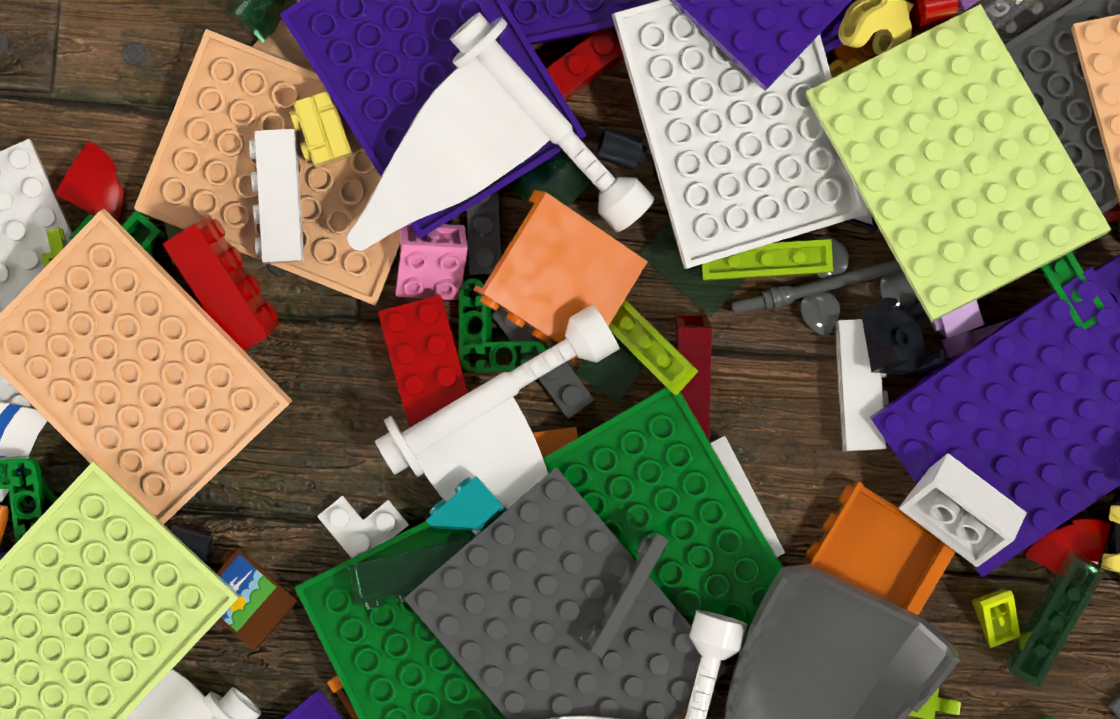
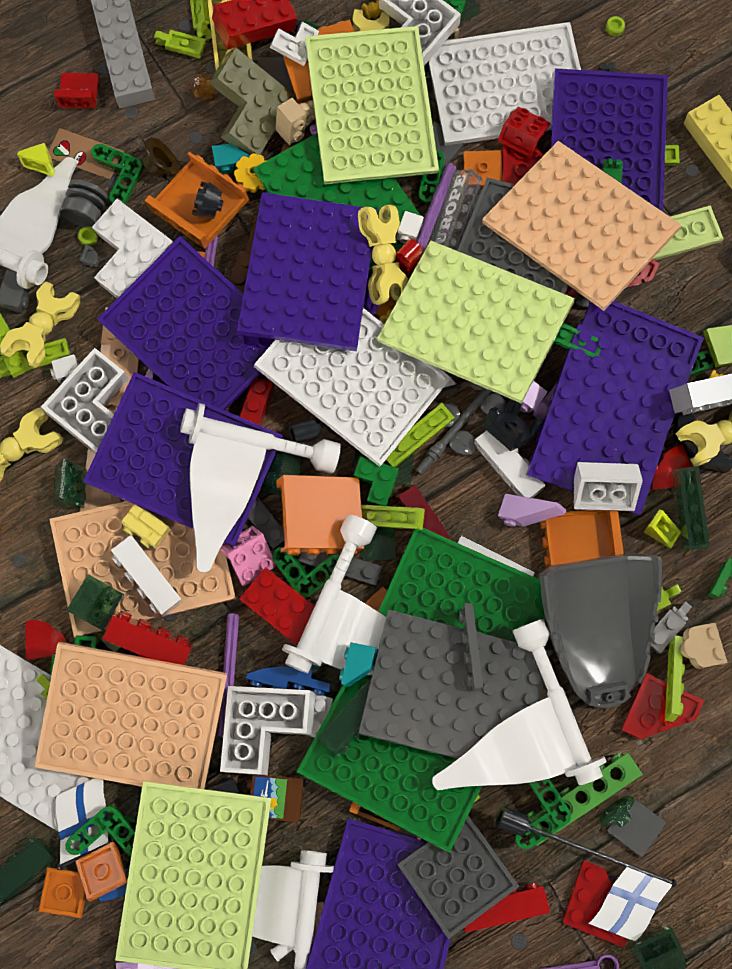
camera: 30 degrees left, 10 degrees down
(188, 186) = (95, 602): none -> clear green slope
(292, 478) = (253, 717): none -> white brick
(300, 396) = (229, 664): none -> medium lavender axle
(359, 451) = (281, 677): none -> blue slope
(677, 286) = (381, 479): none -> green brick
(834, 465) = (526, 511): none -> lavender slope

